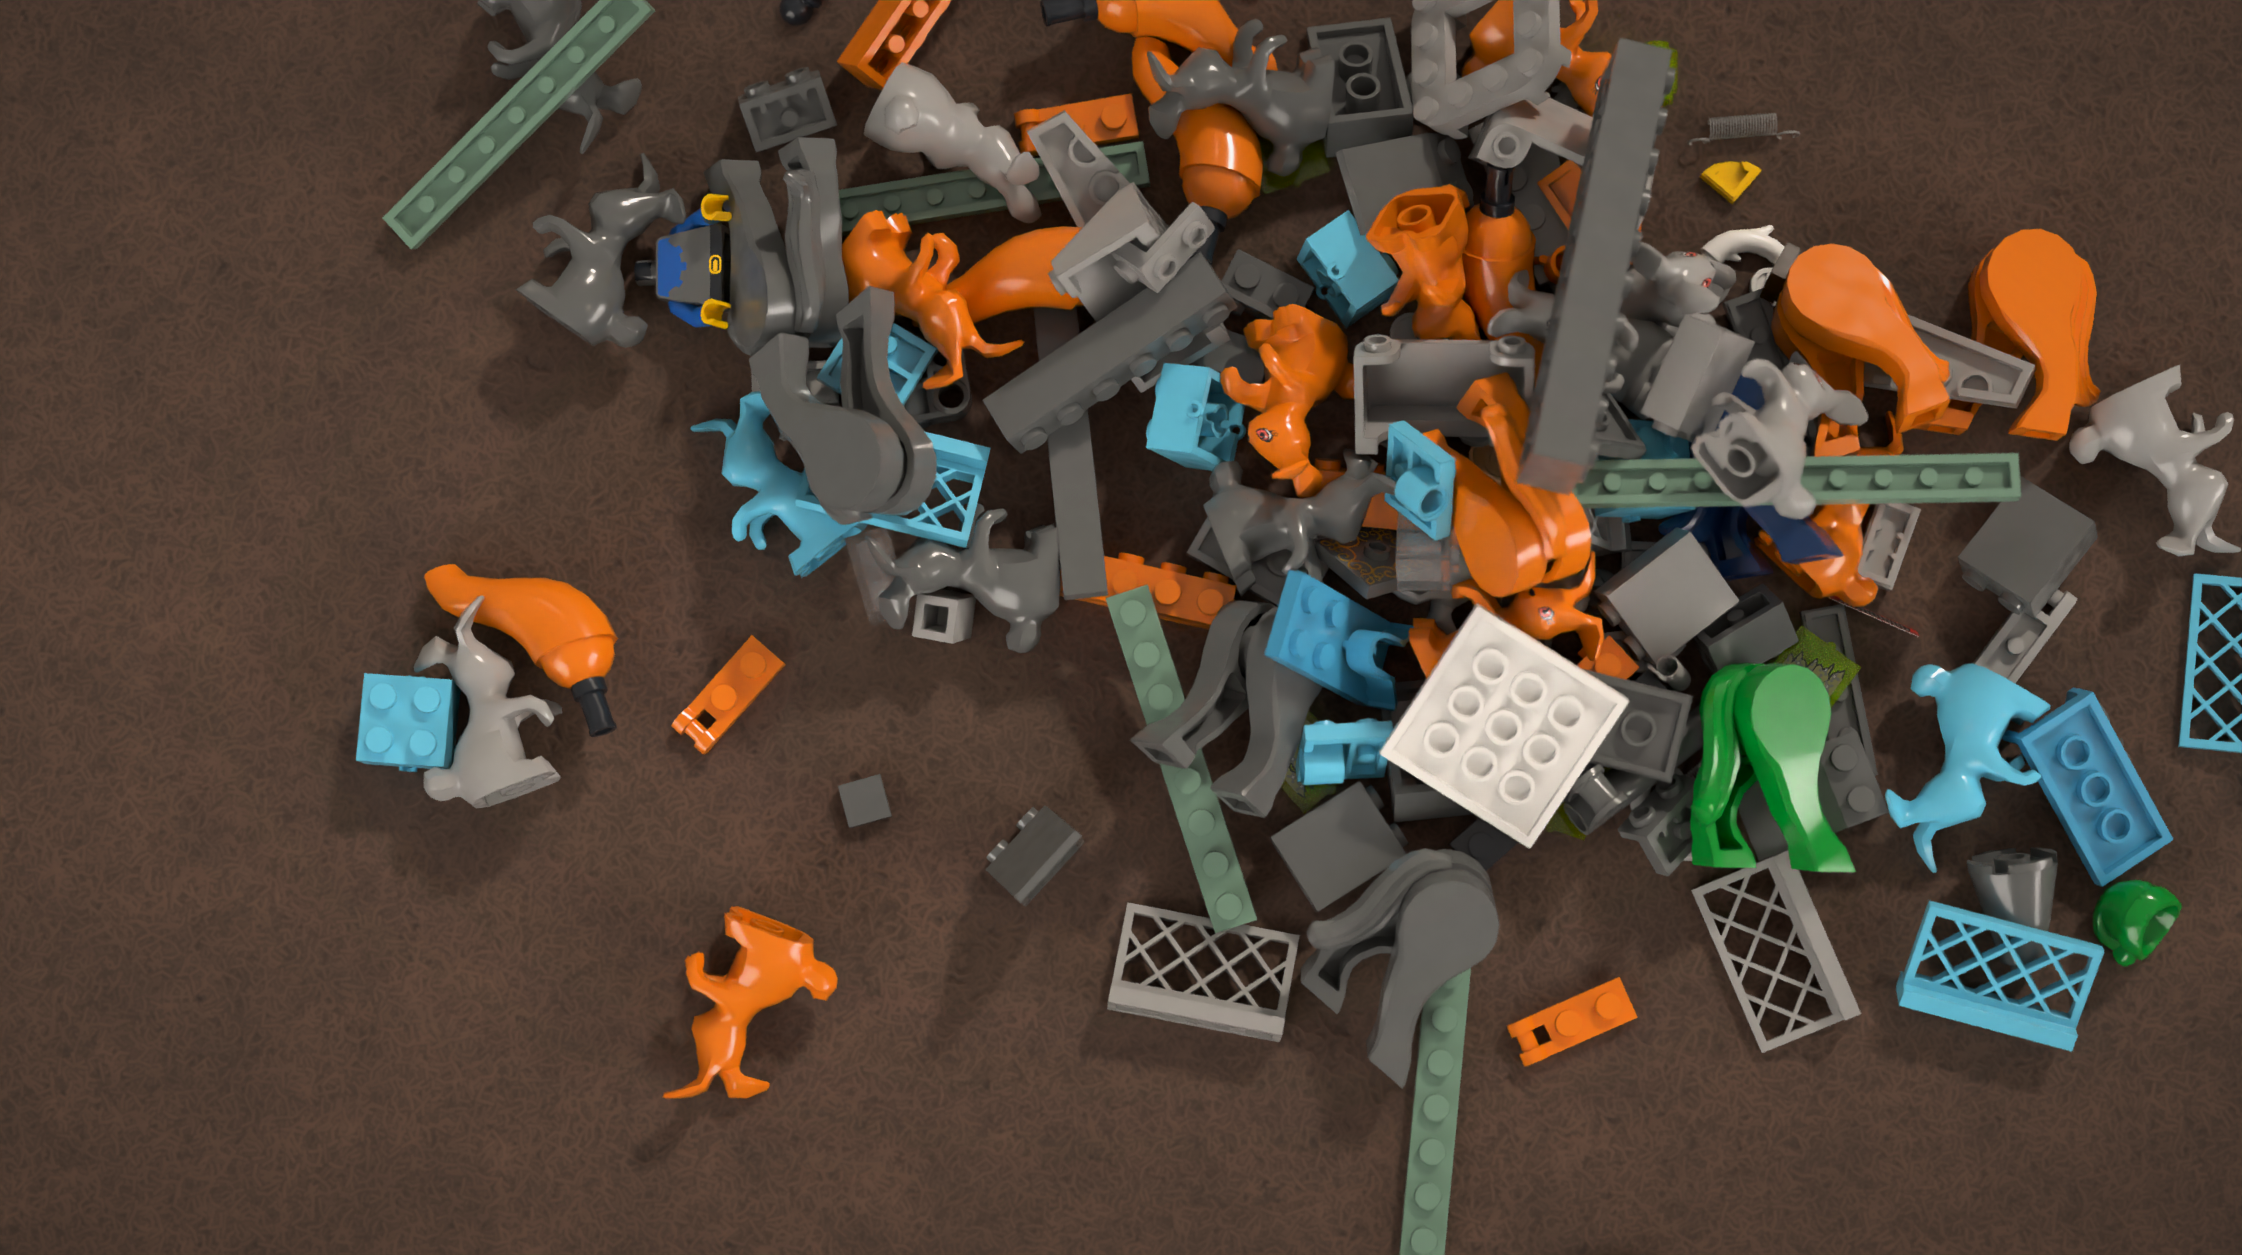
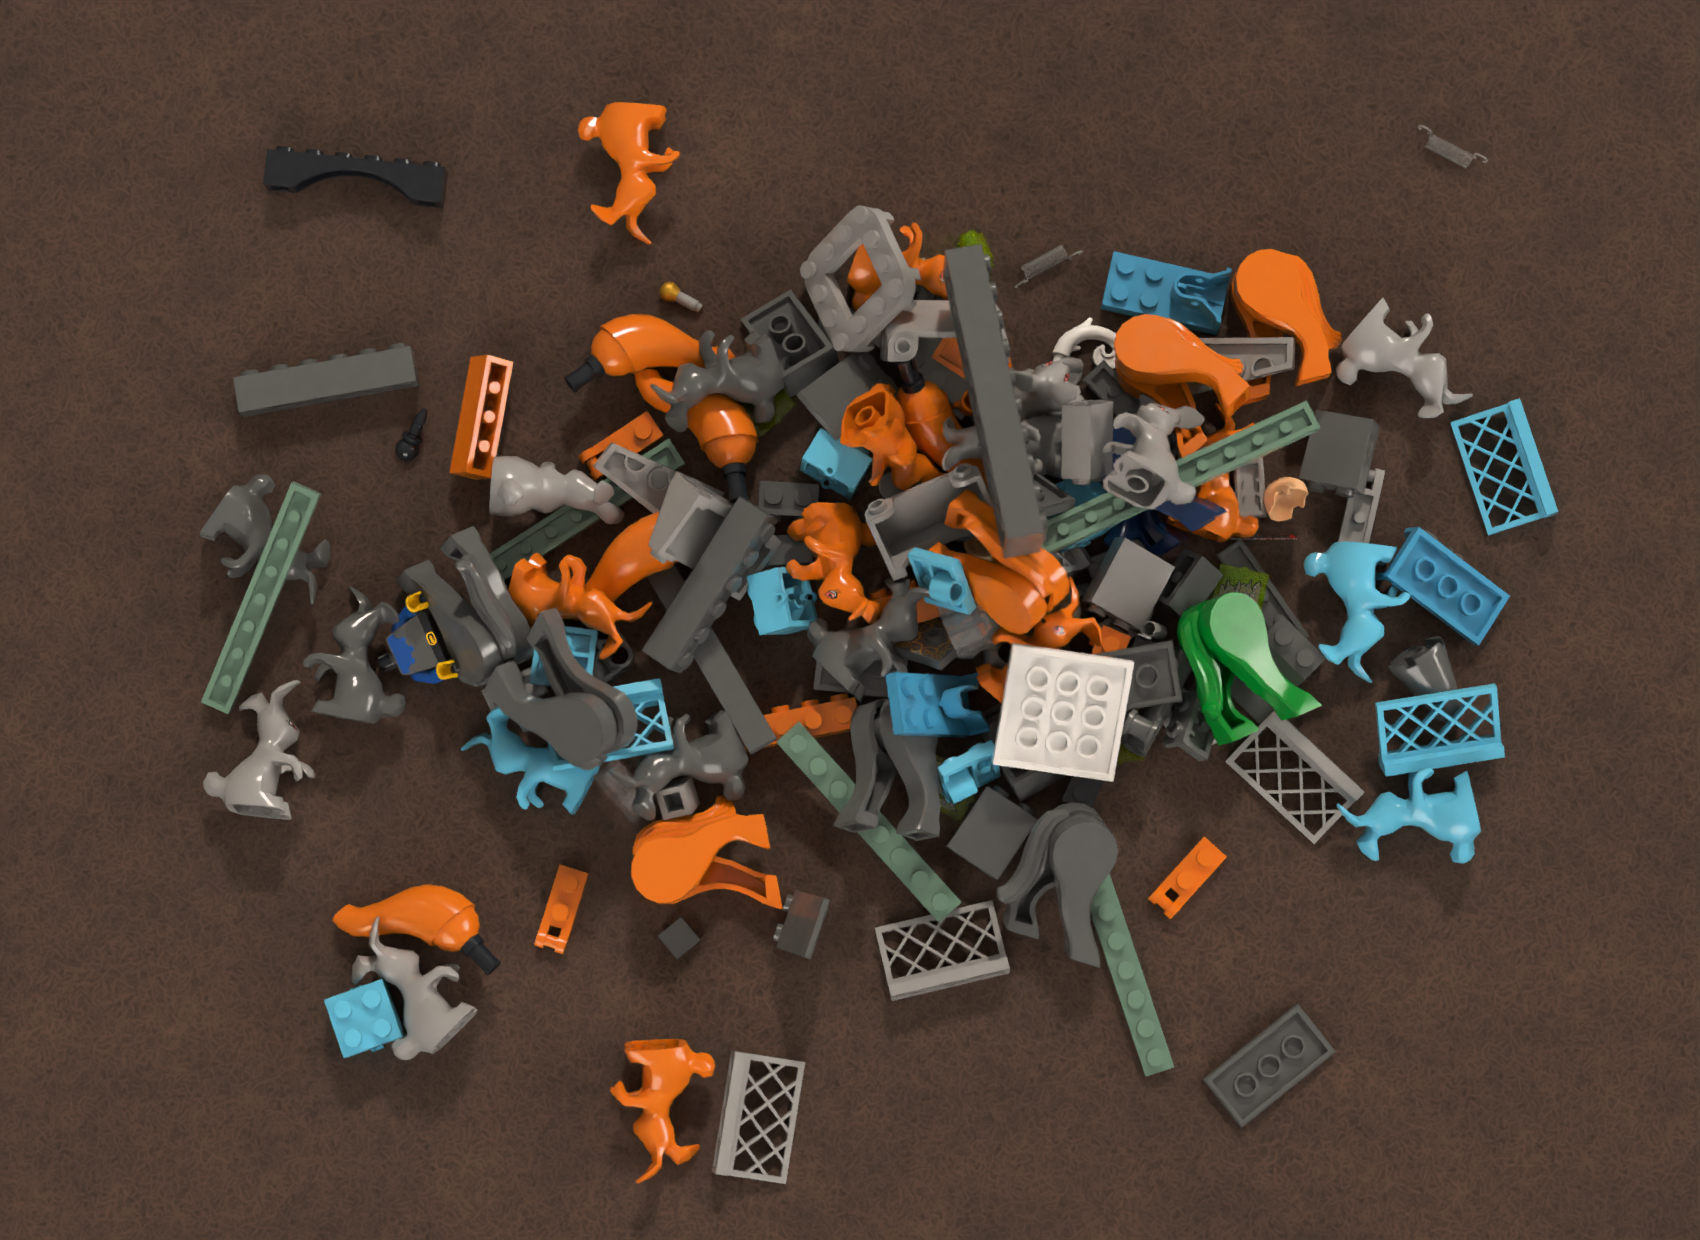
camera: 30 degrees left, 0 degrees up
(405, 349) = (254, 782): none -> light grey animal
(786, 109) = (430, 517): dark grey bracket -> none
(831, 1061) = (732, 1110): none -> light grey fence
(908, 699) = (680, 858): none -> orange animal
(1168, 252) = (720, 506): light grey bracket -> none
(1730, 178) = (1051, 298): yellow tile -> none
(1779, 272) = (1108, 348): dark brown tile -> none
(1896, 235) = (1166, 290): none -> dark azure plate
(1926, 573) = (1283, 497): none -> light nougat hair
(1954, 1092) = (1442, 815): none -> medium azure animal
(2134, 919) = (1507, 657): green piece -> none

